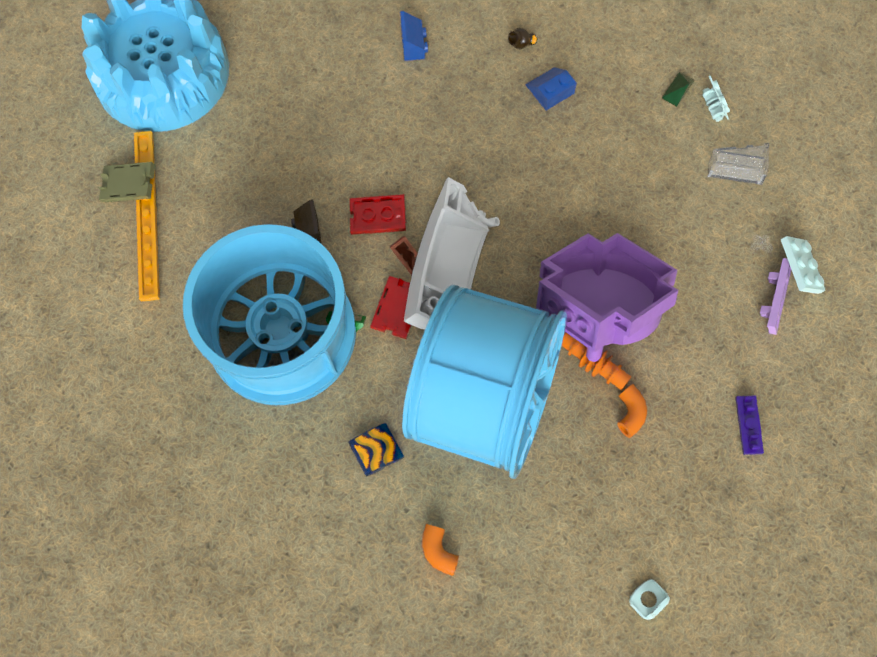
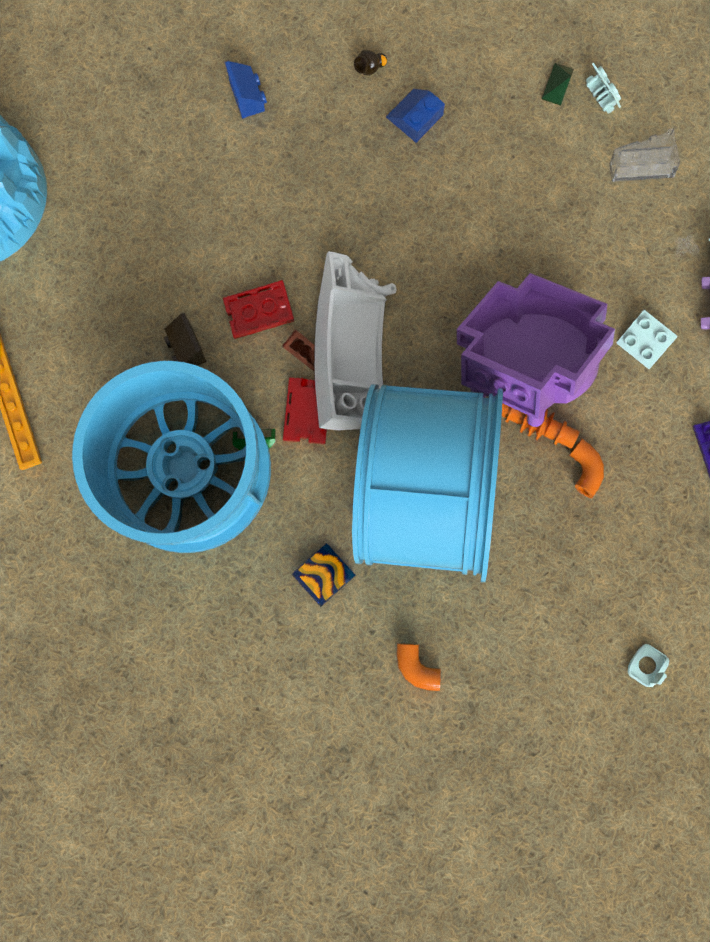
camera: 10 degrees left, 10 degrees up
(709, 313) = (646, 339): none -> light aqua hinge

